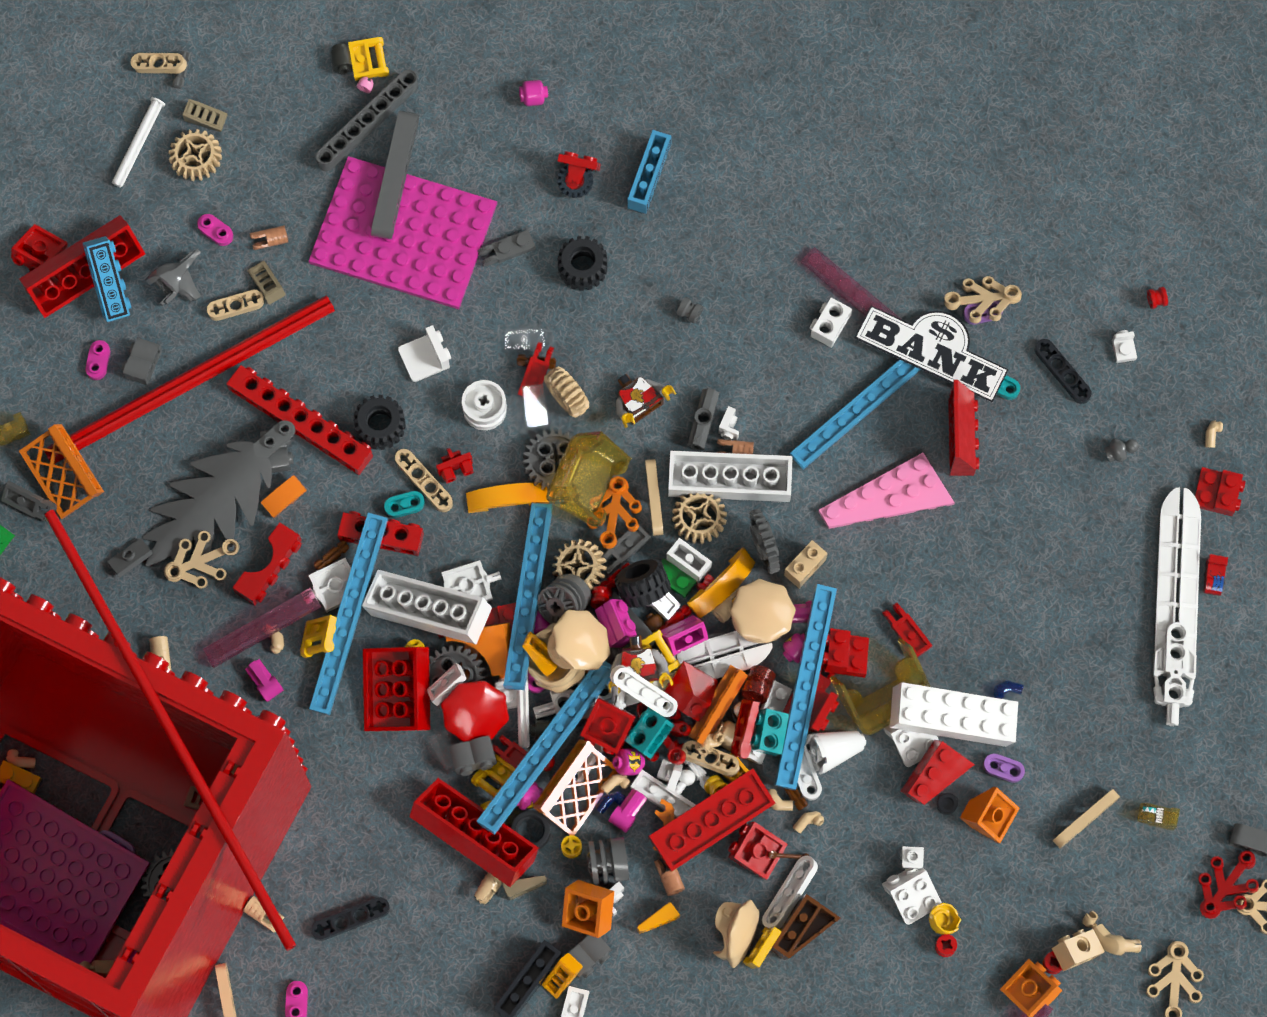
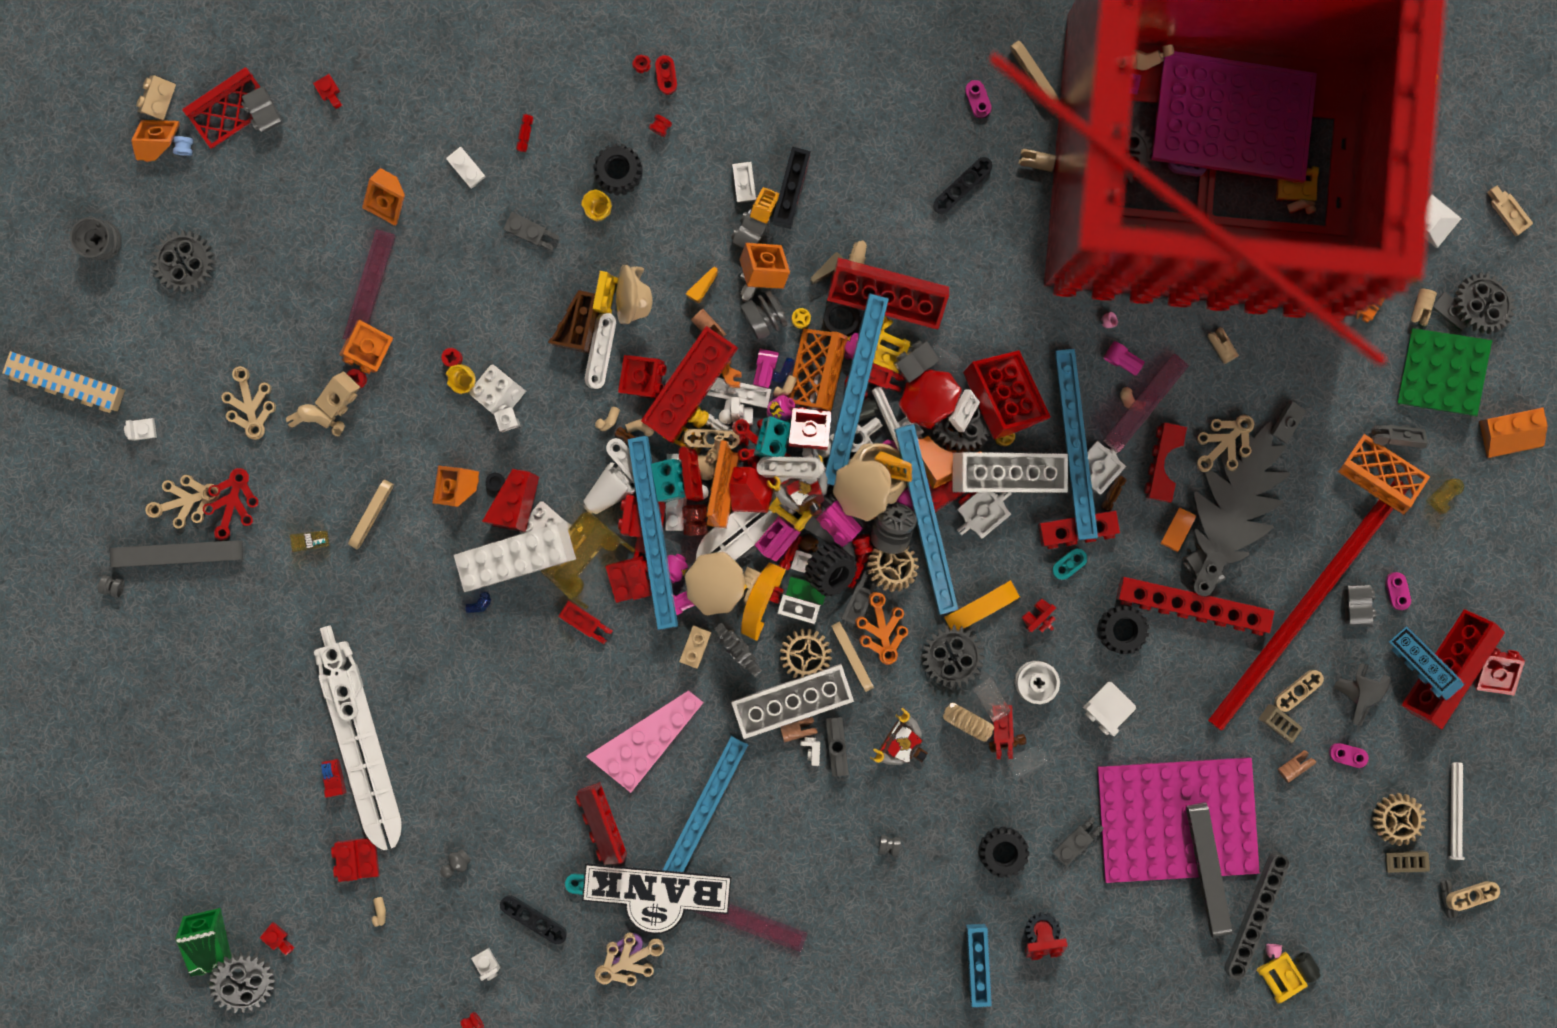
camera: 155 degrees right, 15 degrees up
(316, 630) = (1096, 419): yellow plate -> none
(421, 482) = (1060, 596): tan beam -> none
(533, 93) = (1116, 1002): dark pink head -> none
(585, 476) = (919, 648): clear yellow windscreen -> none
(773, 854) = (626, 376): reddish brown hinge -> none
(834, 324) = (755, 883): white brick -> none
(1004, 766) = (457, 531): medium lavender plate -> none

